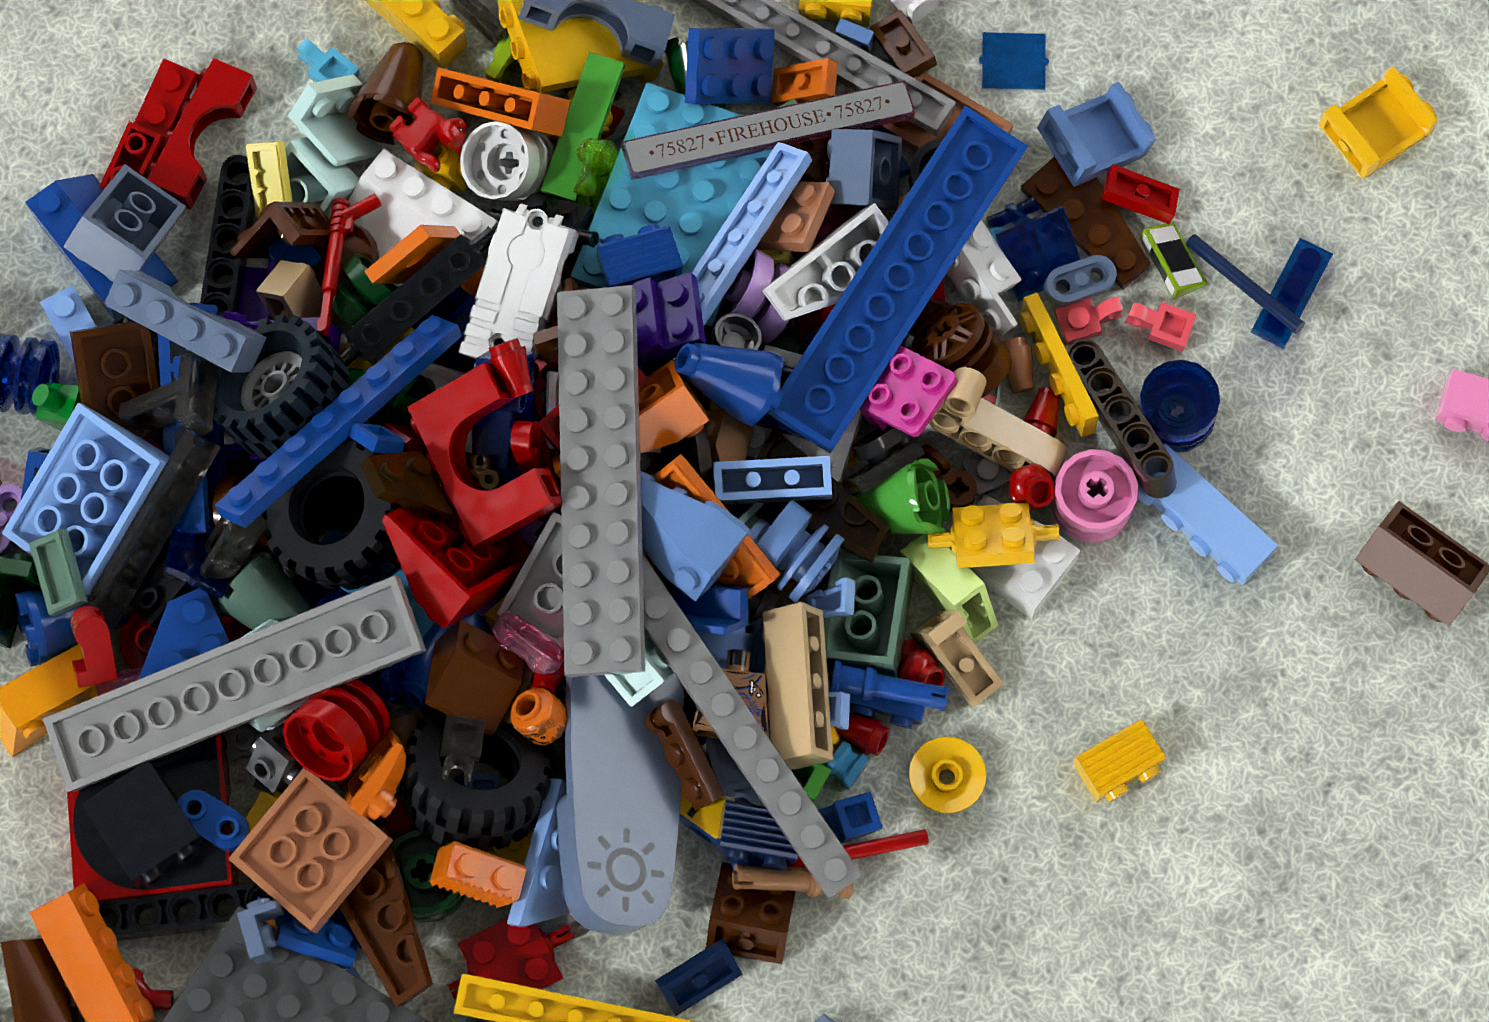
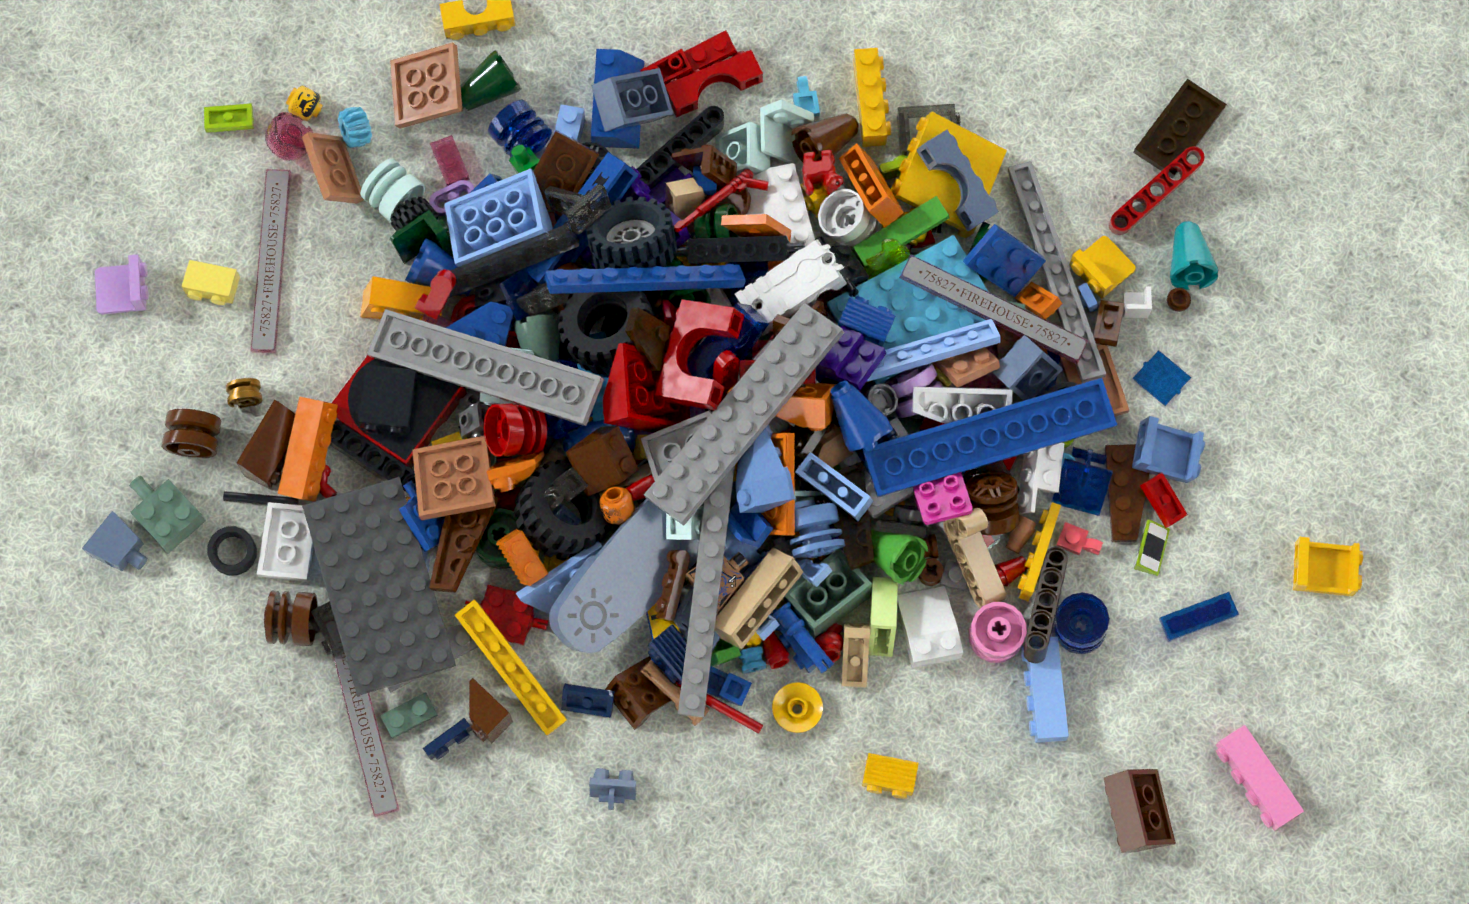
camera: 40 degrees right, 0 degrees up
(58, 572) = (452, 244): sand green tile -> none
(201, 332) = (619, 190): sand blue arch -> none
(212, 819) = (423, 424): blue plate -> none
(257, 936) = (393, 496): sand blue bracket -> none
(268, 173) = (726, 130): light yellow plate -> none
(376, 438) = (653, 303): blue tile -> none
(482, 473) = (691, 363): dark brown arm -> none
(512, 366) = (748, 319): red cone -> none
(529, 643) = (641, 464): clear pink plate -> none
(993, 535) = (924, 607): yellow plate -> none
(1032, 485) = (968, 600): red animal -> none
(1078, 281) = (1089, 518): sand blue plate -> none
(1168, 324) = (1116, 578): coral plate -> none
(1245, 284) = (1176, 591): dark blue bar -> none

